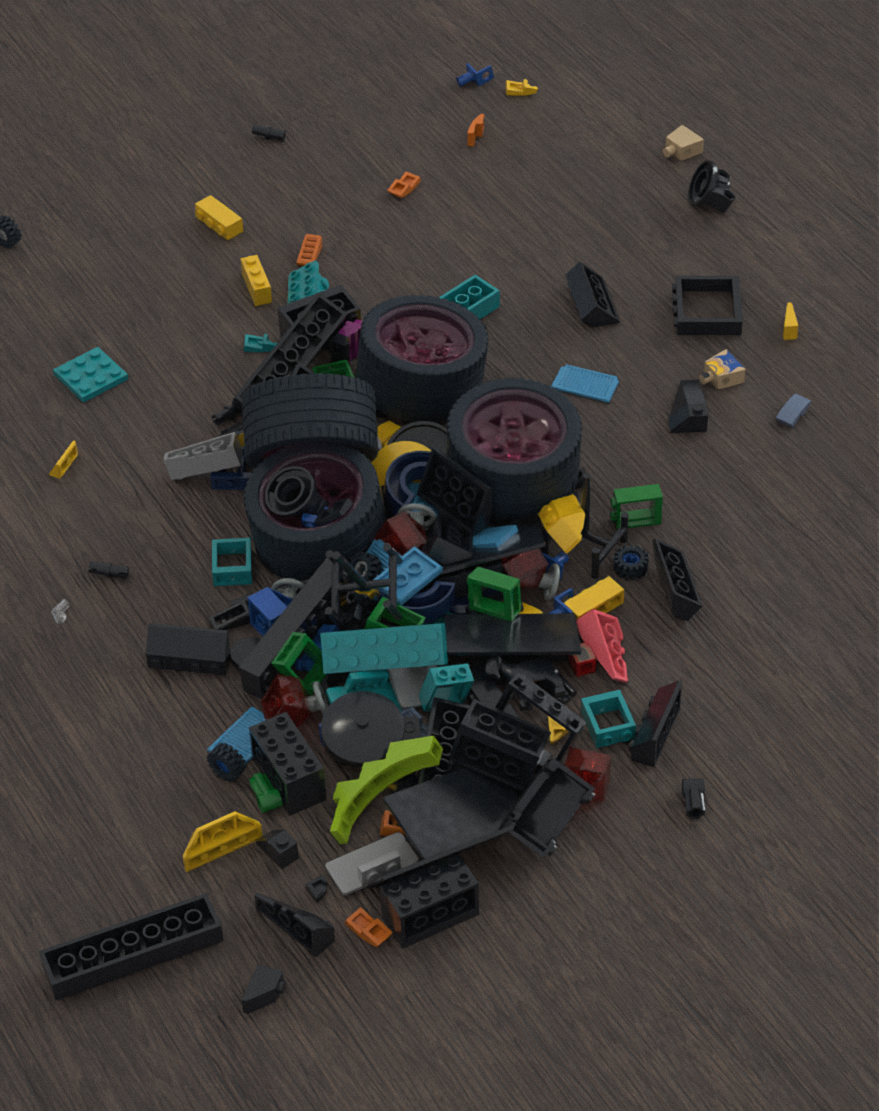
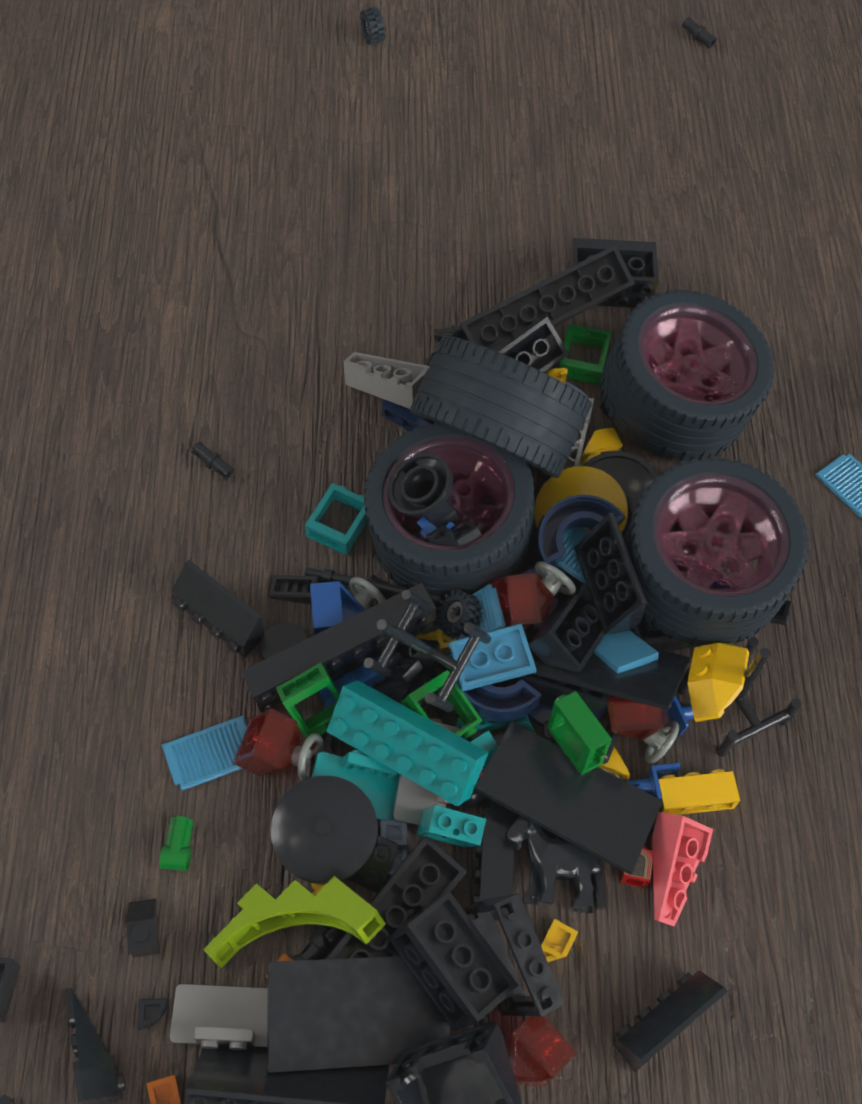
camera: 25 degrees right, 15 degrees up
(58, 611) = (131, 484): clear arm -> none
(65, 461) = (258, 308): yellow slope -> none
(90, 374) = (351, 220): teal plate -> none
(219, 217) = (588, 104): yellow brick -> none
(220, 838) = (85, 880): yellow wedge -> none
(226, 762) = (159, 782): black bush -> none
(256, 280) = (579, 192): yellow brick -> none
(258, 344) = (536, 266): teal slope -> none
(288, 763) = (216, 827): black brick -> none
(305, 282) = (628, 221): teal bracket -> none
(310, 249) = (663, 174): orange slope -> none
(346, 342) = (617, 310): hips -> none
(405, 185) = (801, 154): orange slope -> none
(475, 295) = (788, 324): teal brick -> none
(605, 703) = (623, 946): teal window -> none
(632, 555) = (780, 753): black bush -> none
(641, 517) = (821, 691): green window -> none
(676, 580) = (810, 822): black slope -> none

